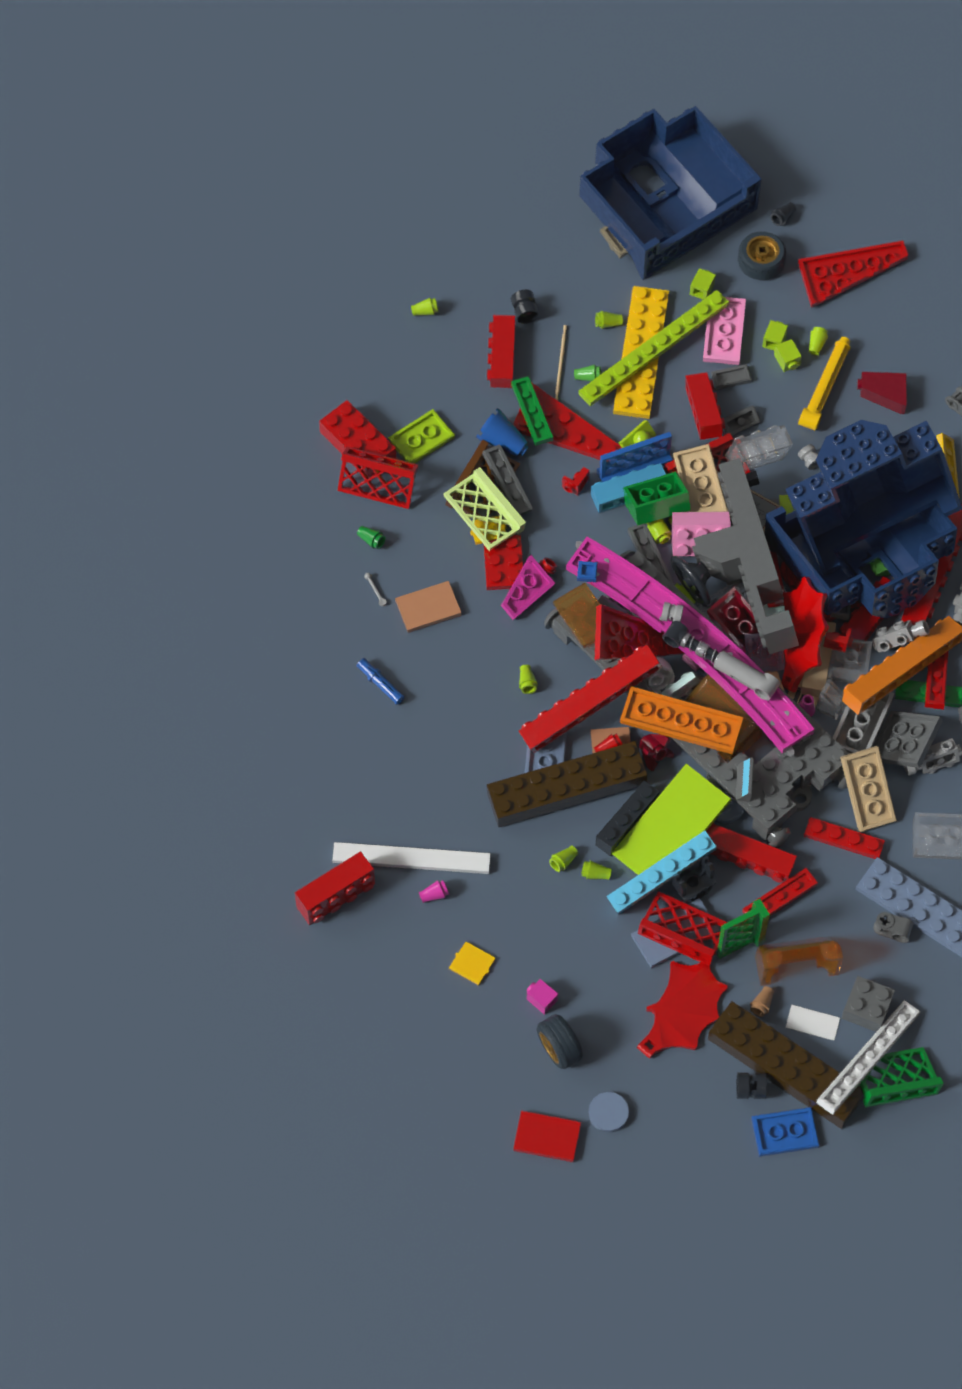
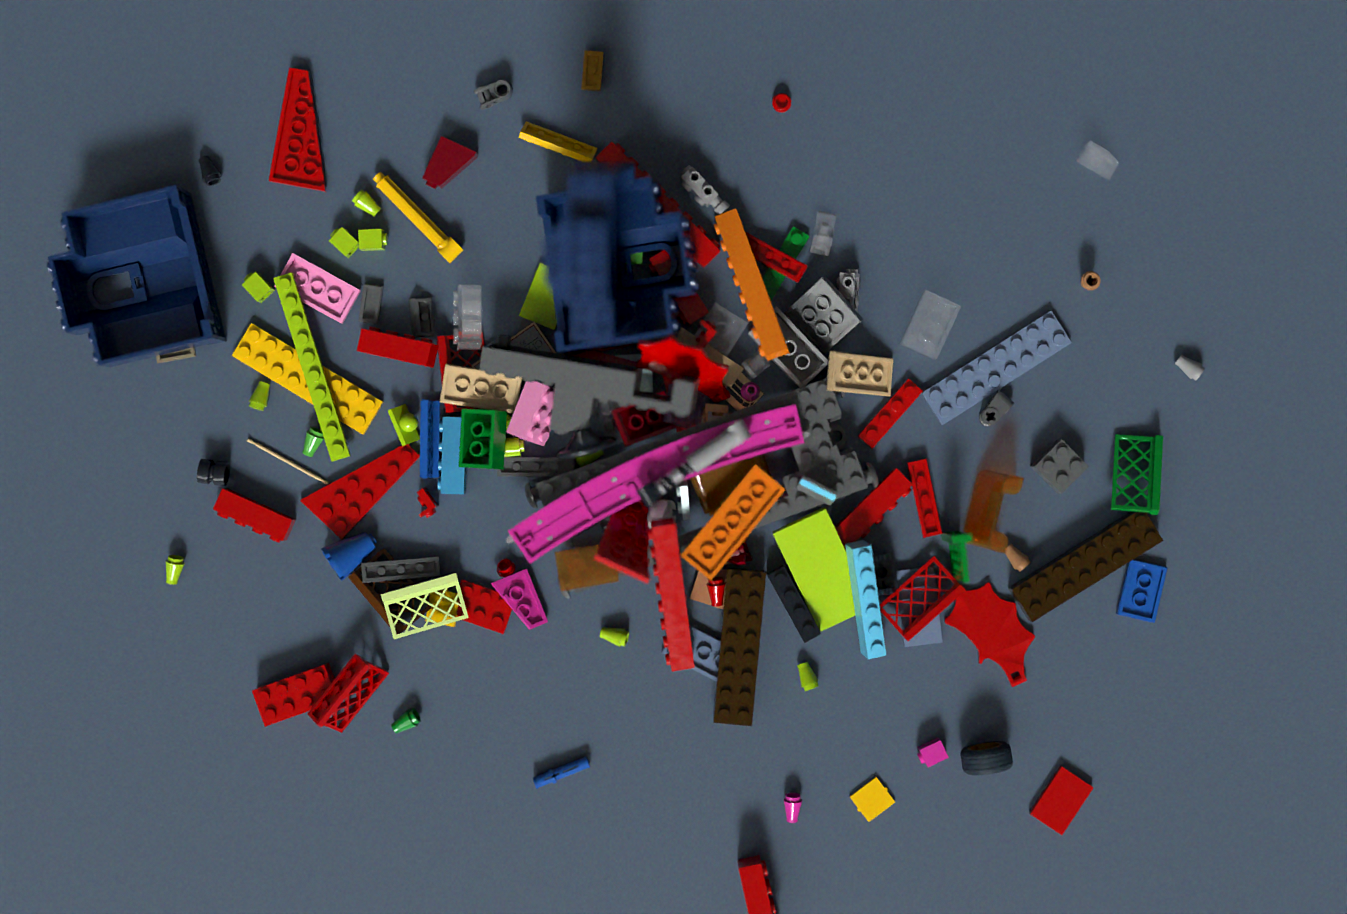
camera: 65 degrees left, 25 degrees up
(382, 602) = (477, 736): light grey hinge -> none
(415, 858) = (749, 814): white tile -> none
(421, 437) = (316, 629): lime tile -> none
(428, 606) = (500, 696): nougat tile -> none
(532, 411) = (335, 516): green plate -> none
(587, 571) = (547, 547): blue tile -> none
(593, 870) = (831, 654): lime cone -> none
(608, 1112) = (1061, 737): sand blue tile -> none
(671, 612) = (626, 487): light grey wheel -> none
(743, 1085) = (1092, 604): black wheel -> none
(761, 255) = (262, 217): black wheel -> none
(809, 455) = (491, 268): light grey wheel -> none
(812, 1022) = (1050, 520): white sticker -> none
(868, 1057) = (1115, 492): white tile -> none
(900, 630) = (717, 273): light grey brick -> none

